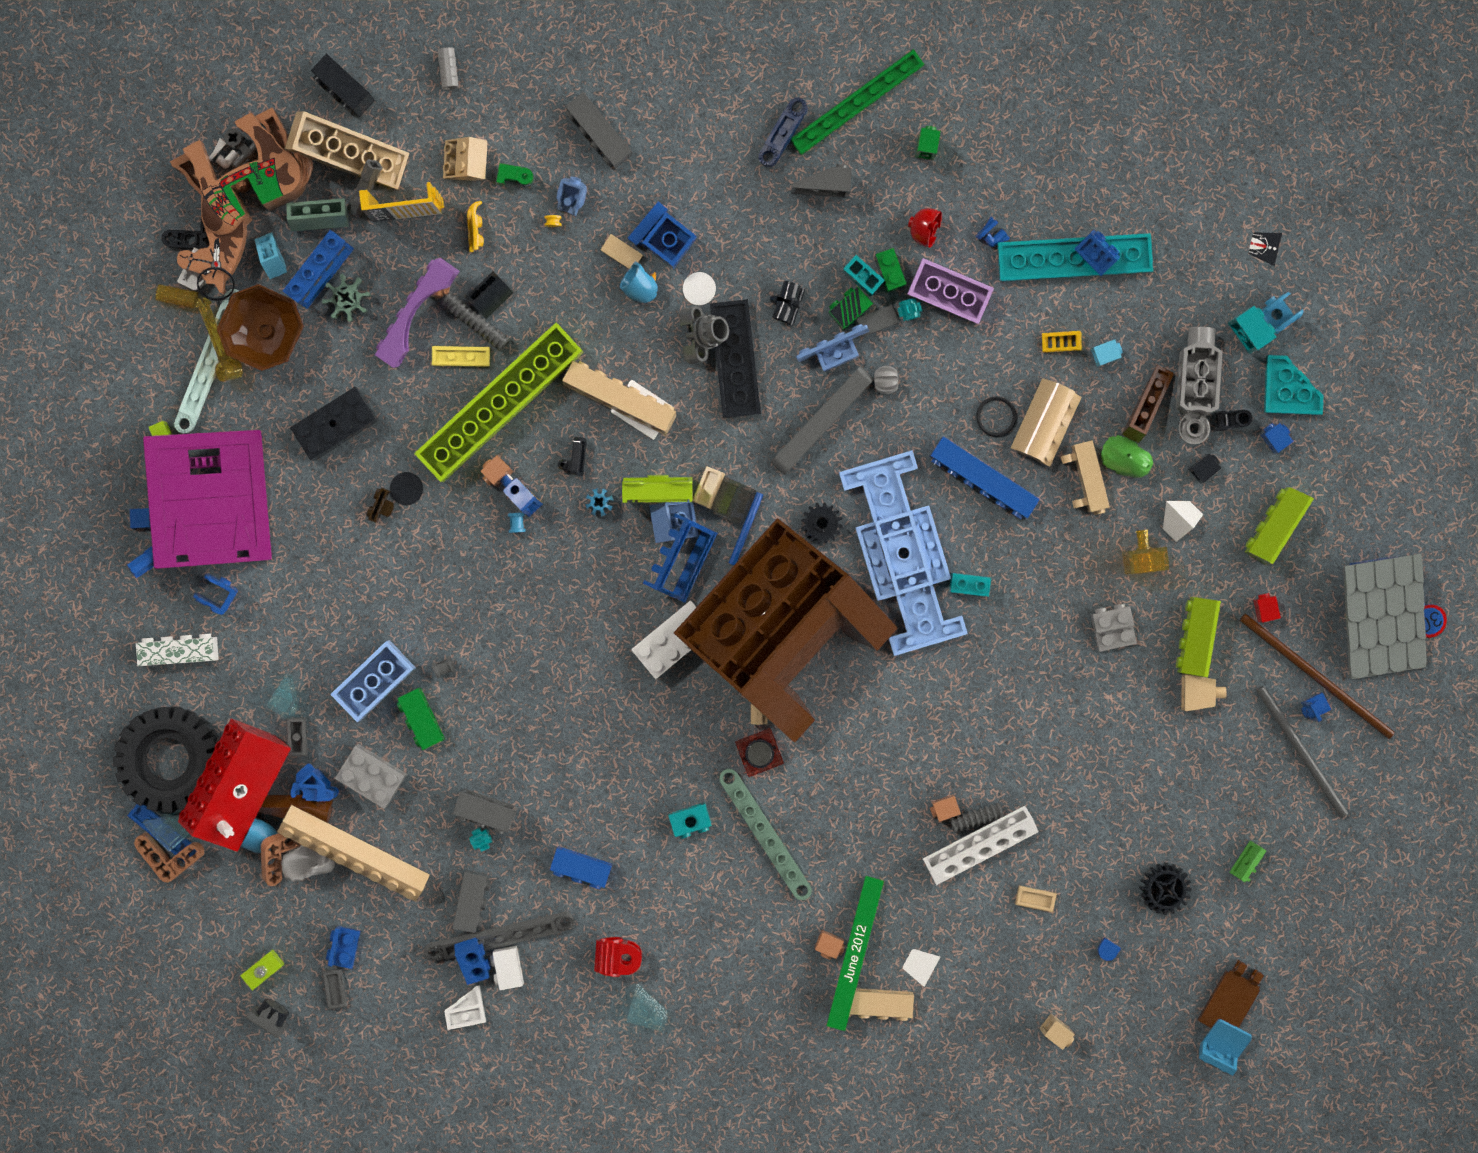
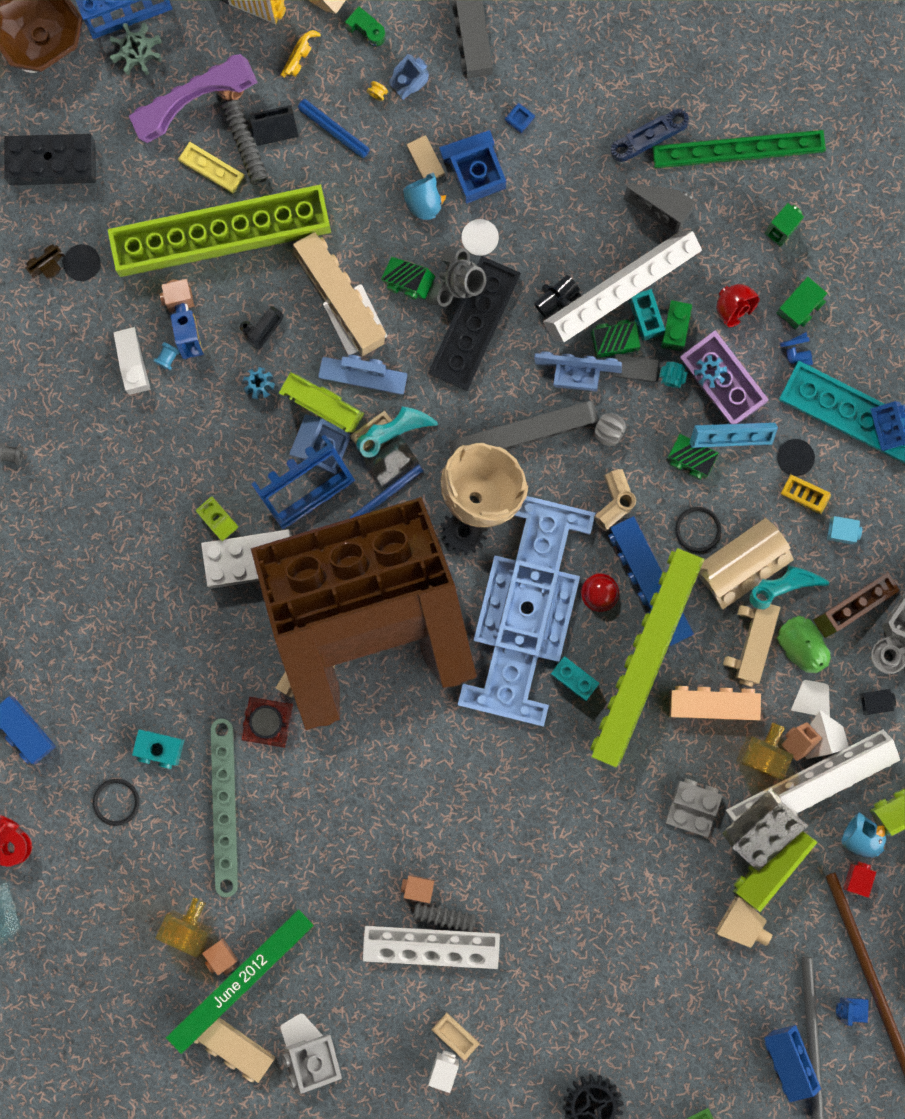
camera: 30 degrees right, 5 degrees down
(491, 541) = (131, 361): none -> white slope
(536, 270) = (333, 128): none -> blue axle
(631, 624) = (217, 518): none -> lime piece
(665, 354) = (408, 278): none -> green brick
(674, 177) = (519, 118): none -> blue tile
(674, 448) = (362, 373): none -> medium blue bracket
(682, 895) = (95, 804): none -> black tyre
(728, 464) = (405, 421): none -> teal piece
(793, 941) = (185, 931): none -> clear yellow brick
(819, 470) = (491, 477): none -> tan piece
(832, 265) = (622, 286): none -> white brick
(925, 440) = (614, 510): none -> tan piece
(932, 294) = (708, 378): none -> dark azure piece
(942, 981) = (311, 1064): none -> light grey plate
(950, 508) = (600, 592): none -> red helmet
(960, 364) = (696, 460): none -> brick
(975, 196) = (802, 303): none -> green brick
(982, 330) = (733, 435): none -> dark azure tile
(1016, 536) = (648, 656): none -> lime brick
(1038, 317) = (796, 457): none -> black piece
(1043, 929) = (444, 1071): none -> white brick
(1085, 542) = (714, 705): none -> light nougat brick
(1089, 413) = (792, 580): none -> teal piece
(1155, 493) = (812, 698): none -> white sticker
(1165, 531) = (801, 740): none -> nougat brick
(1176, 614) = (764, 829): none -> clear smoke brick
(1192, 558) = (830, 774): none -> white brick
(1252, 575) = (864, 837): none -> dark azure piece
(1293, 772) = (792, 1063): none -> blue brick

